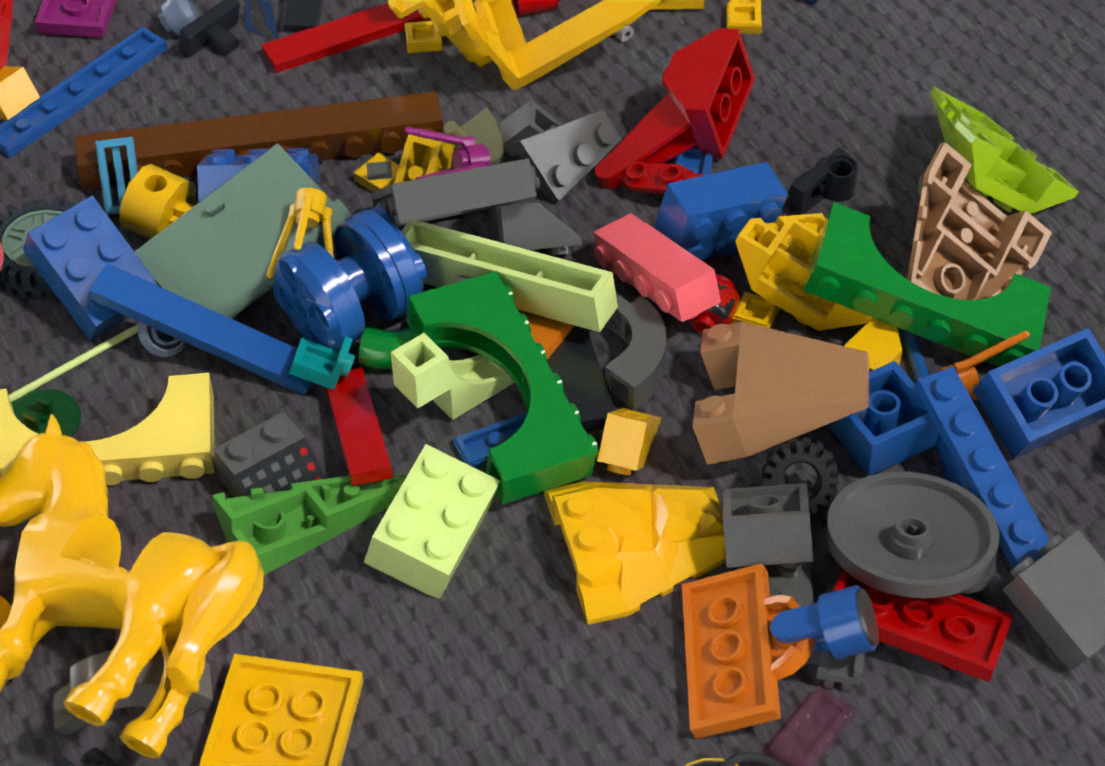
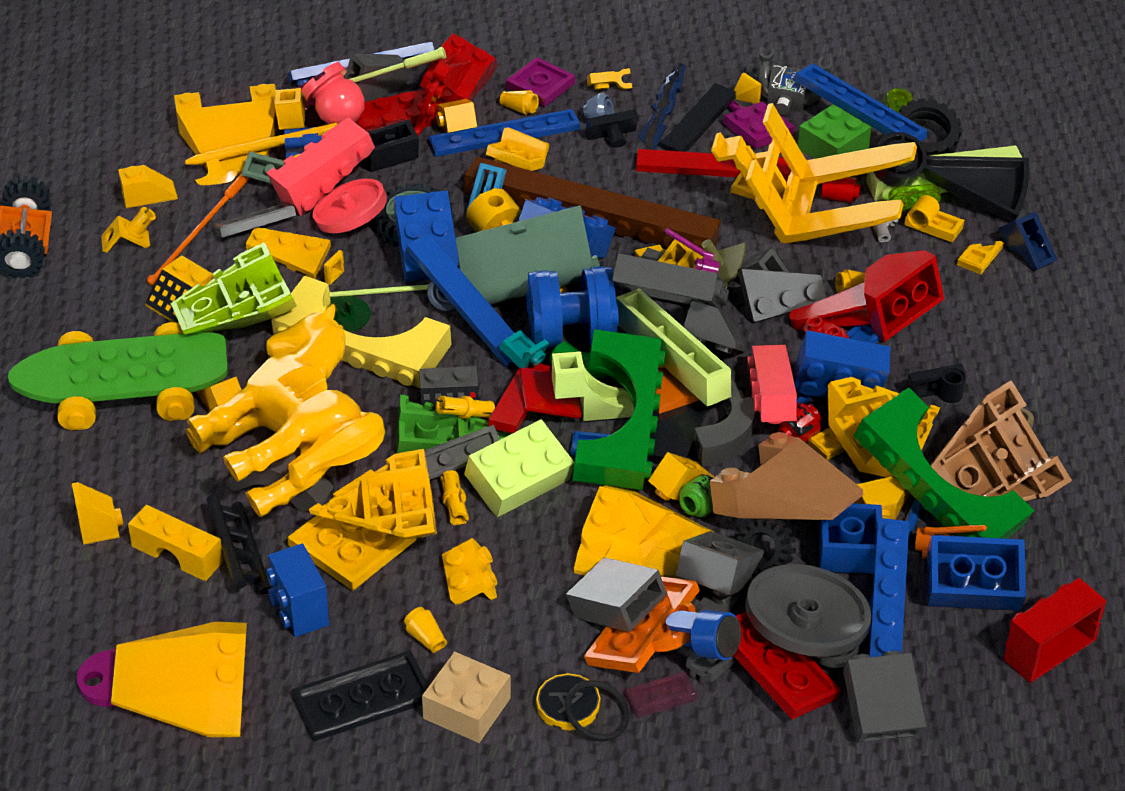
camera: 30 degrees right, 5 degrees down
(70, 42) = (520, 101): none -> yellow cone
(117, 106) = (519, 150): none -> yellow bracket
(306, 212) = (568, 253): yellow plant -> none
(309, 473) = (464, 407): none -> yellow pin
(310, 649) = (389, 500): none -> yellow wedge
(336, 540) = (455, 453): none -> dark grey tile
(371, 600) = (454, 497): none -> yellow pin
(390, 409) = (540, 395): none -> red piece
(465, 692) = (469, 572): none -> yellow bracket
(637, 102) = (848, 279): none -> yellow cone
(671, 449) = (696, 496): none -> bright green head
(676, 628) = (616, 594): none -> brick
(998, 163) = (1066, 415): lime wedge -> none

